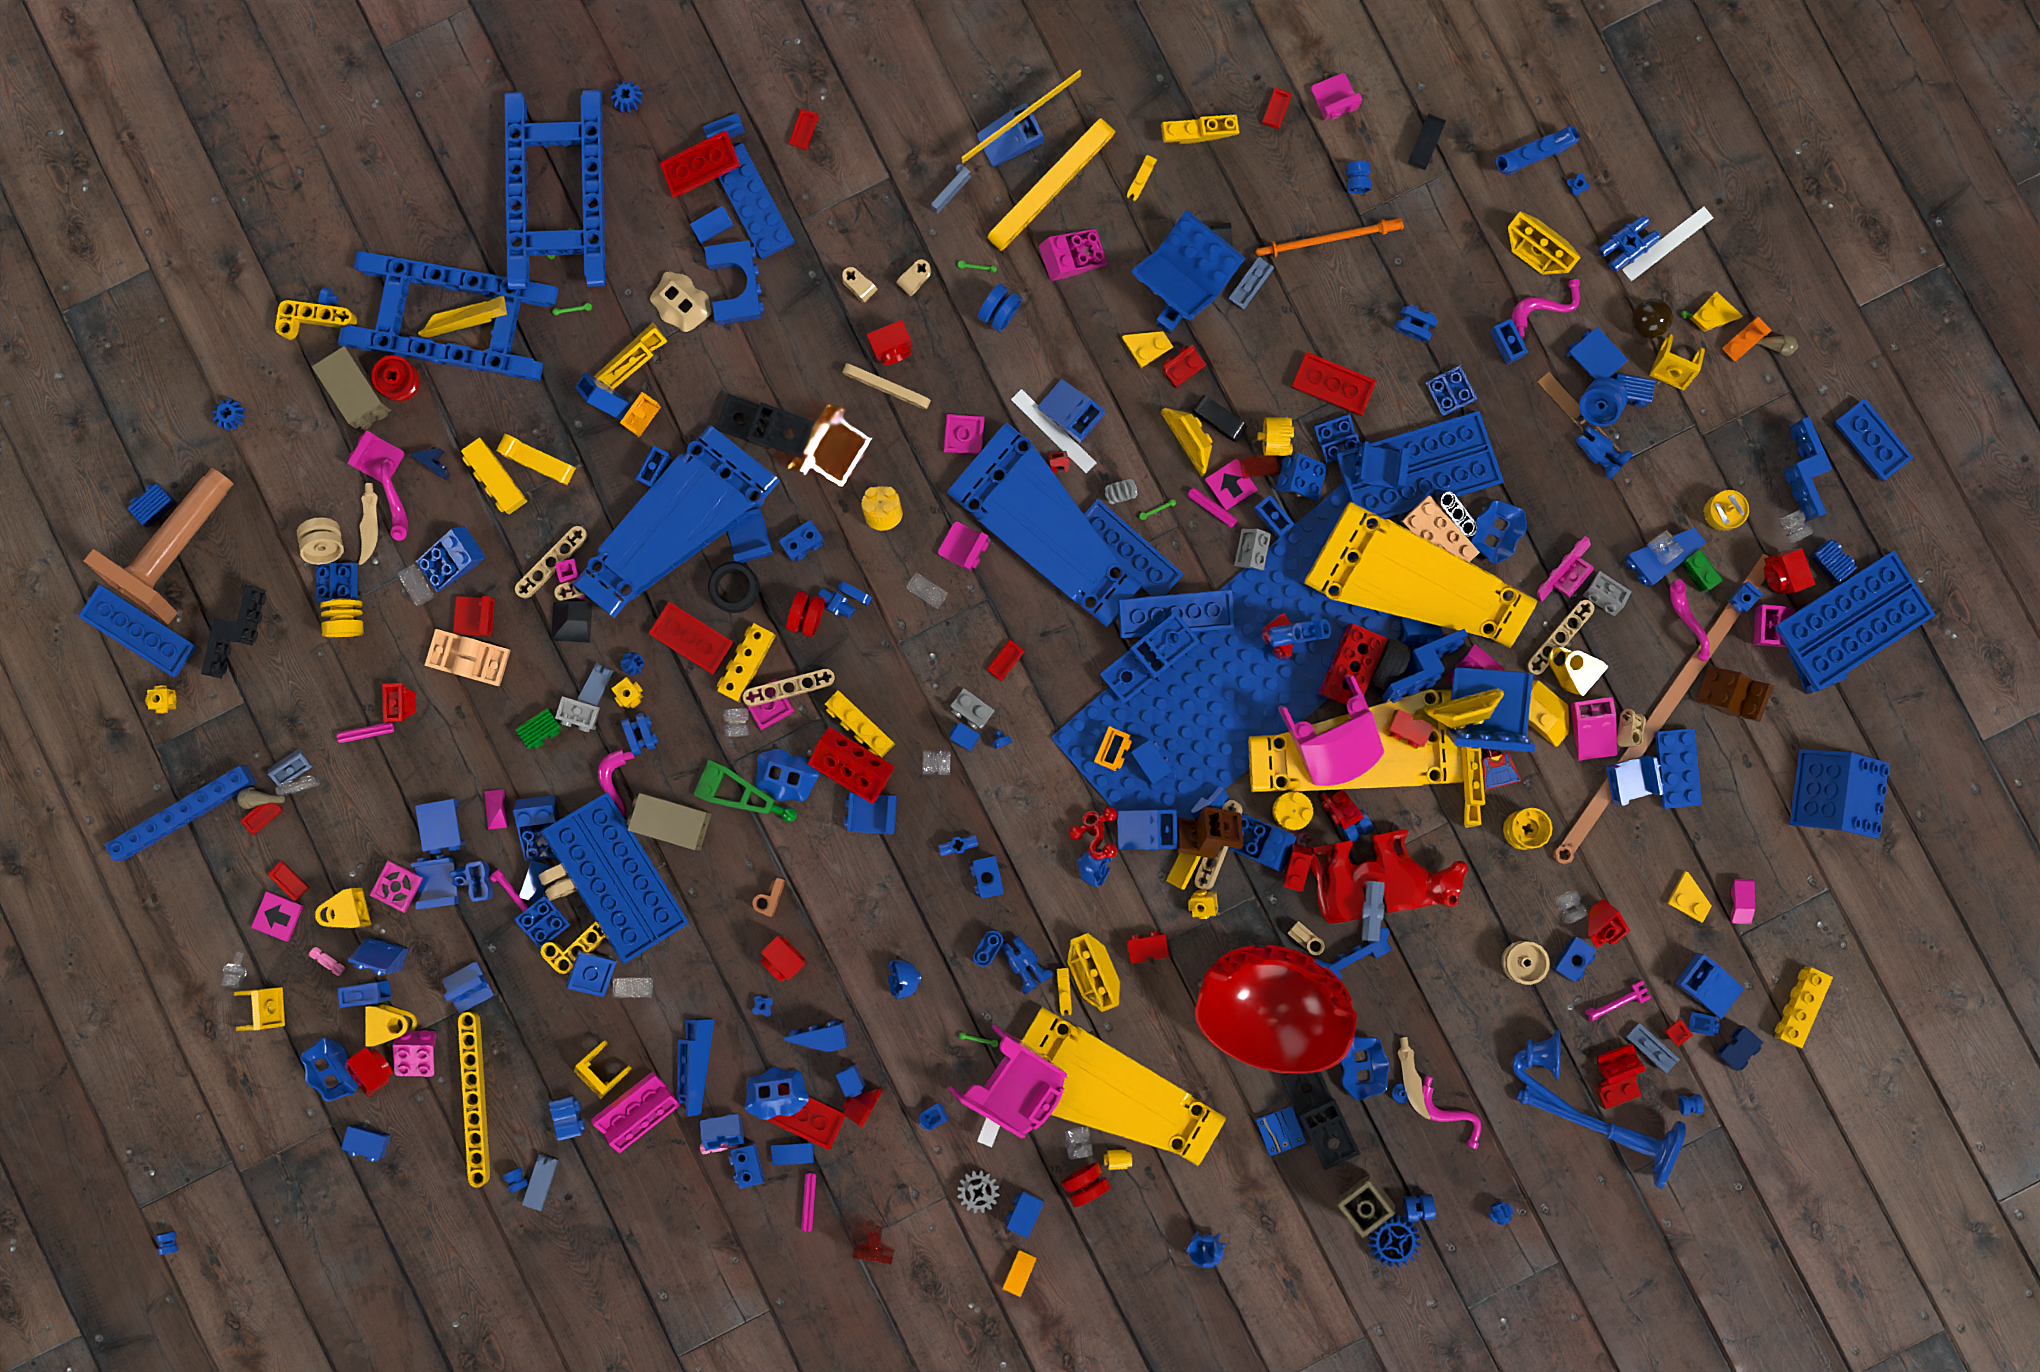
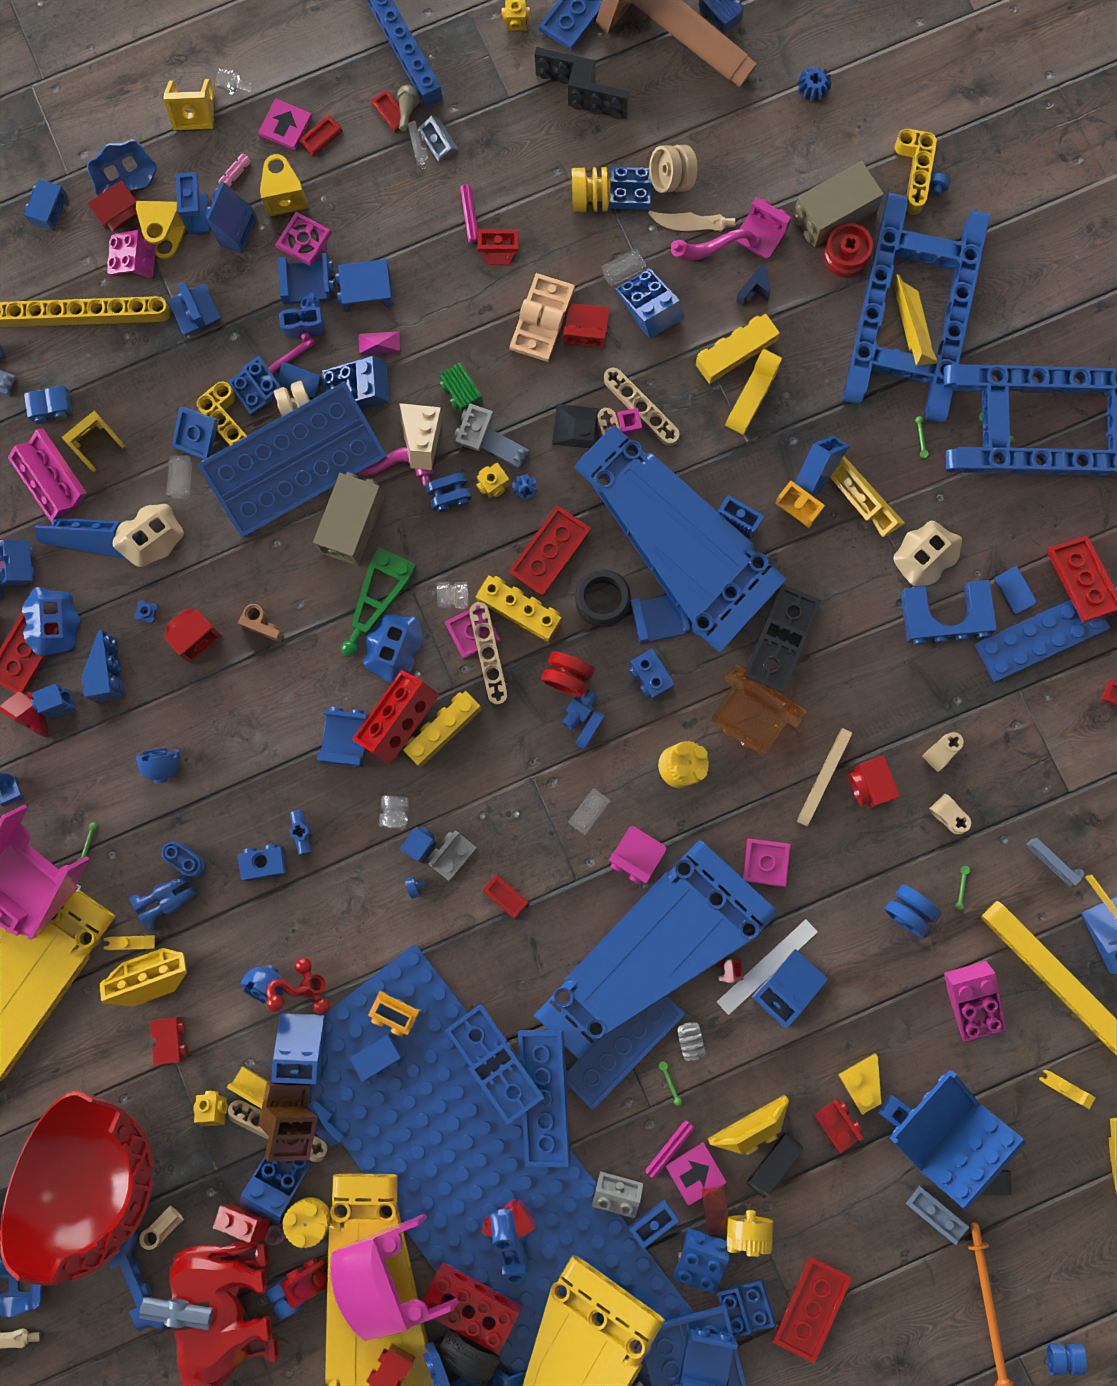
camera: 100 degrees right, 5 degrees down
(582, 762) = (421, 433): none -> tan wedge
(698, 997) = (158, 544): none -> tan piece

